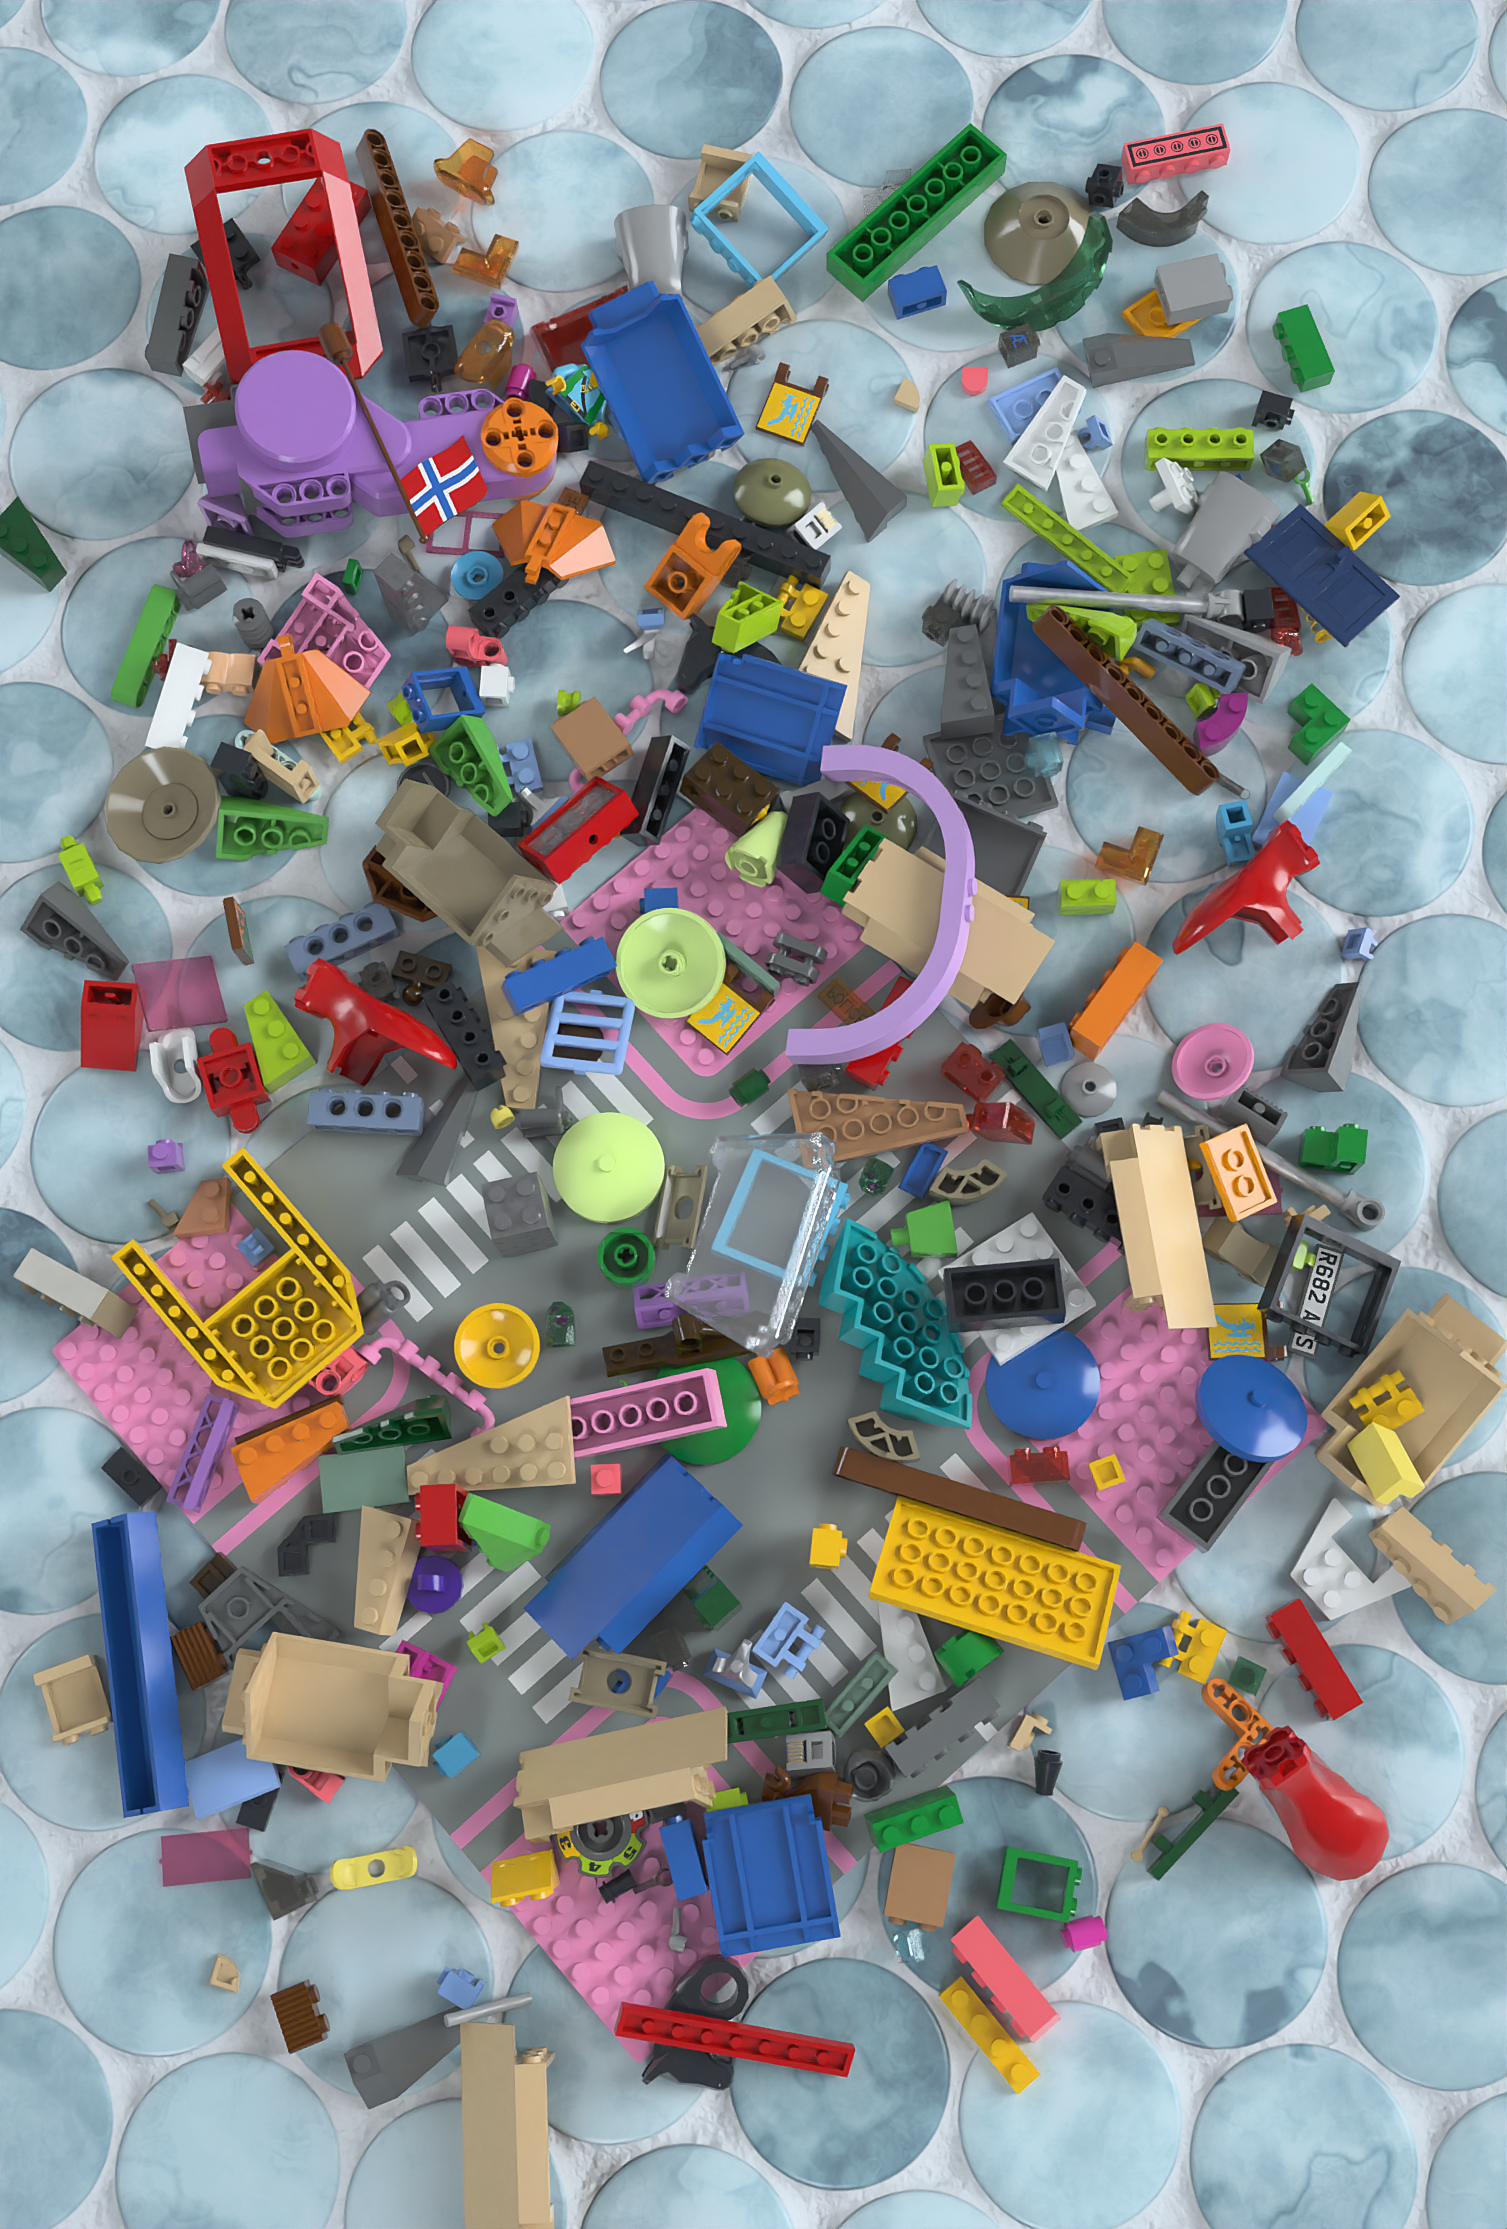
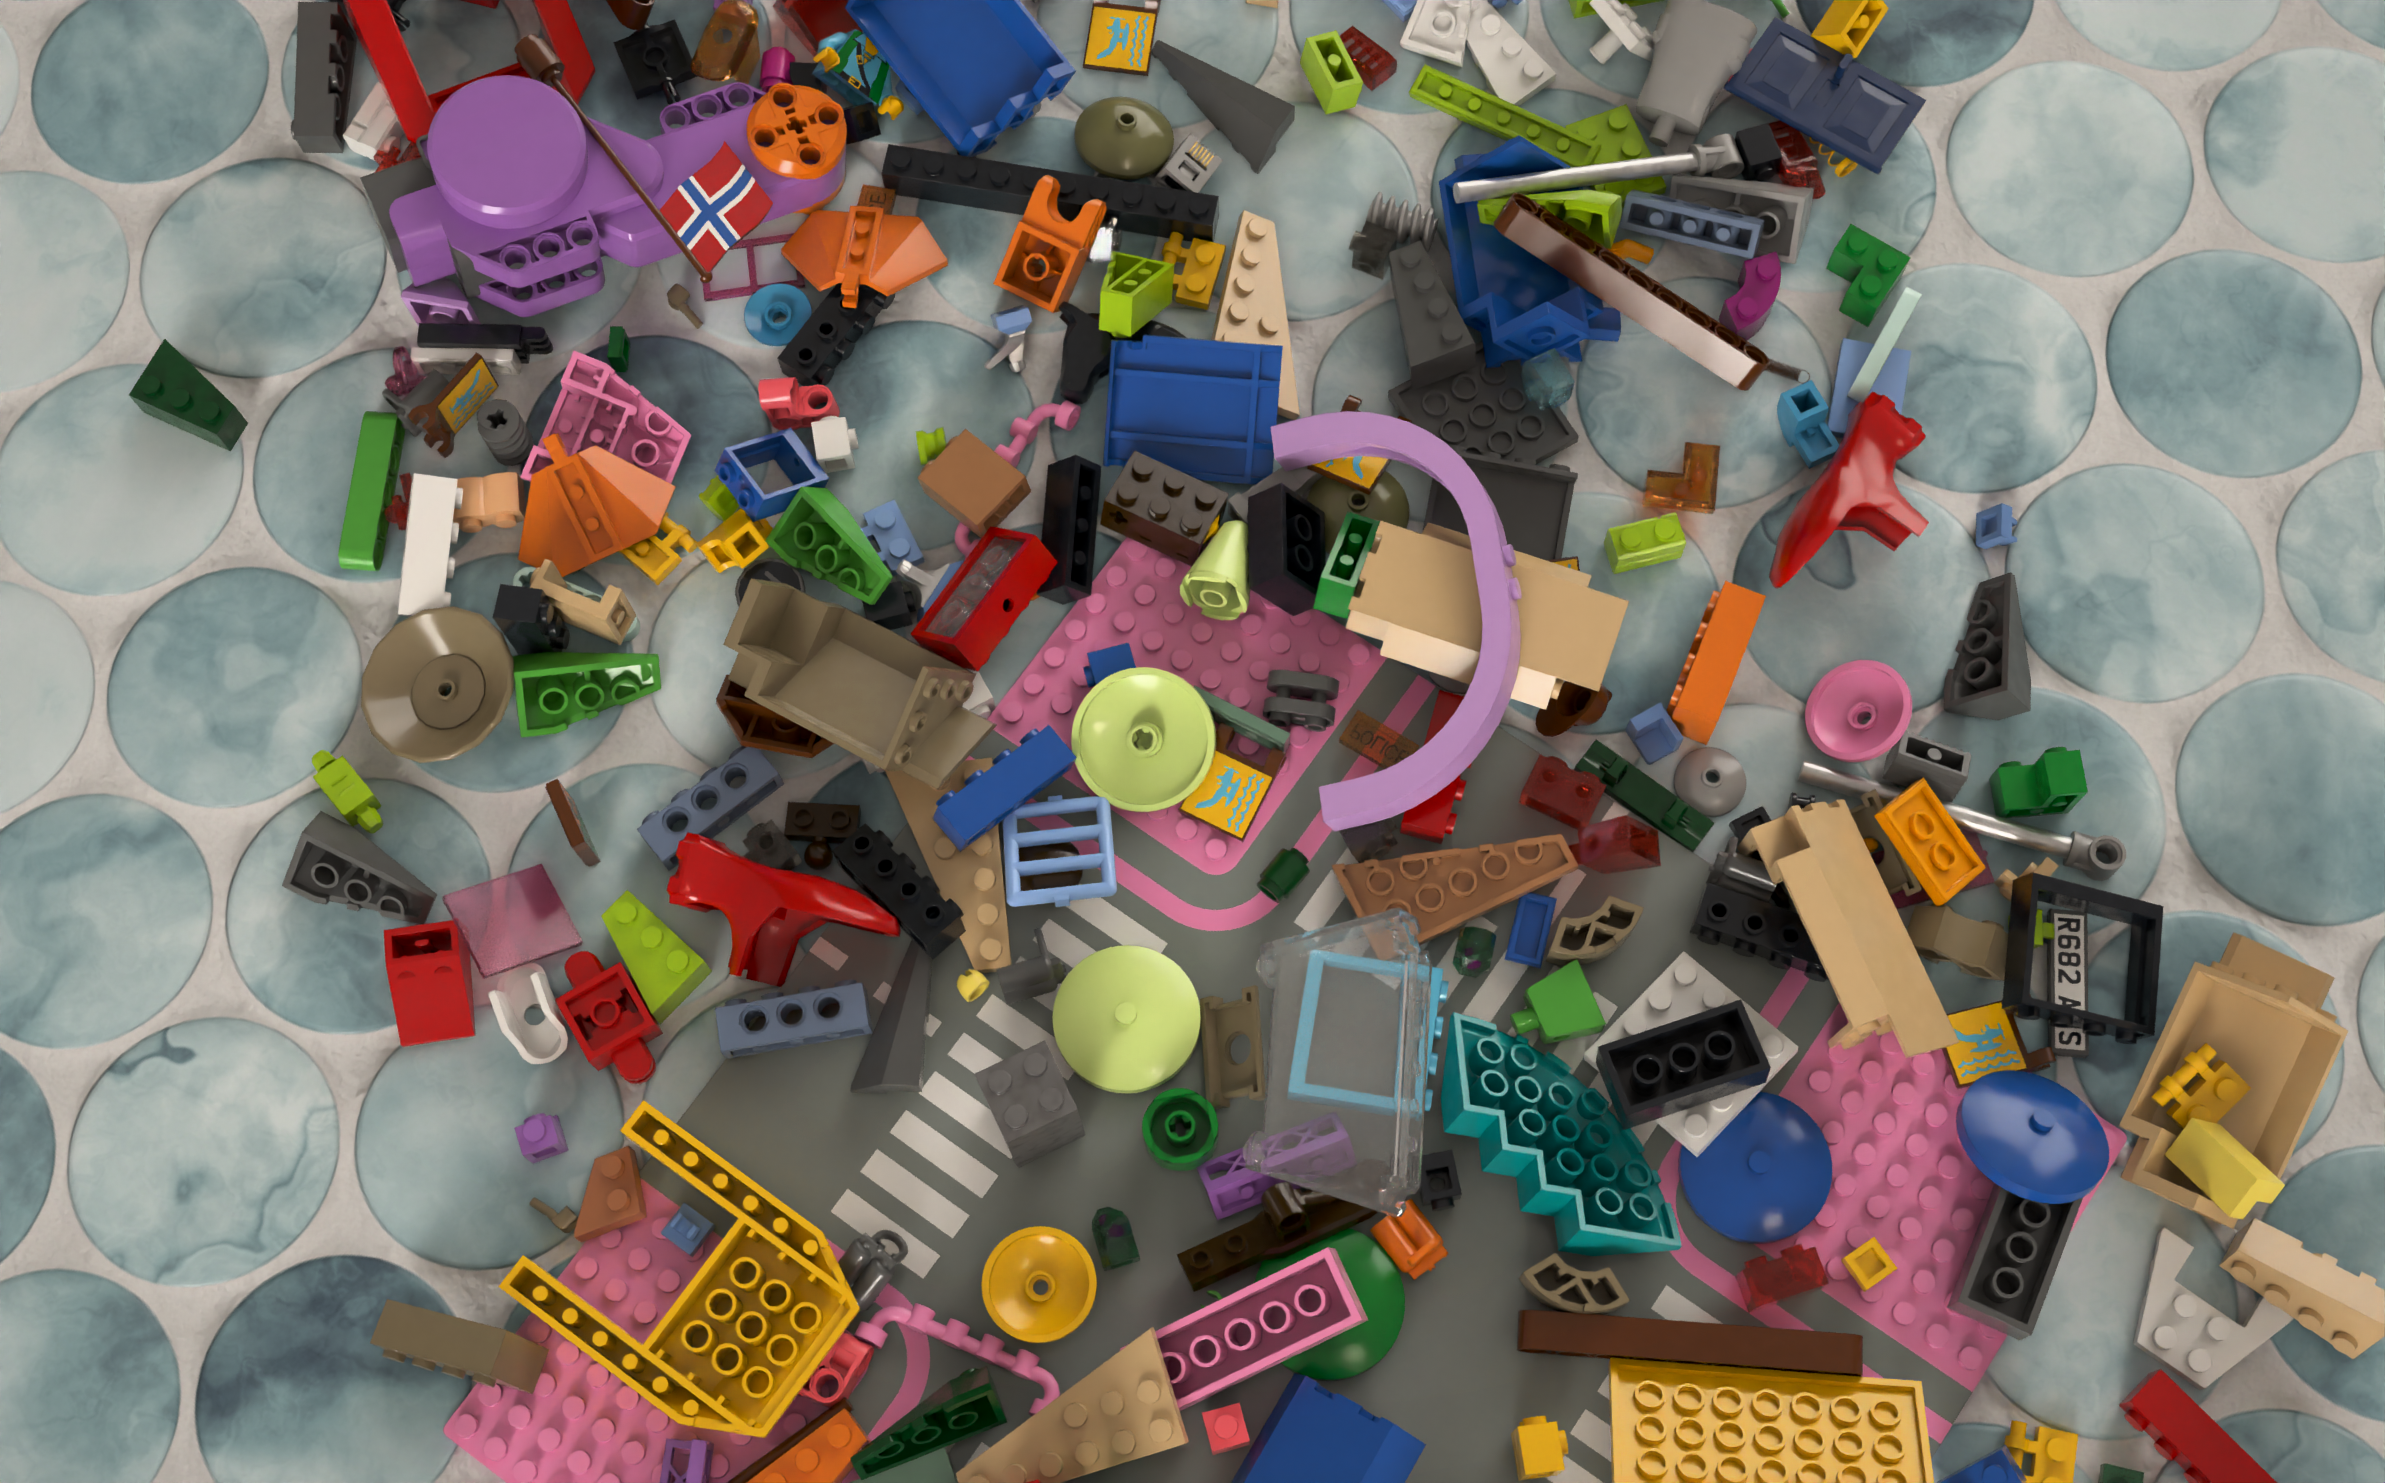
camera: 15 degrees left, 5 degrees down
(221, 593) = (455, 404): none -> flag
(407, 595) = (696, 353): flat silver wedge -> none
(1201, 699) = (1720, 273): lime tile -> none

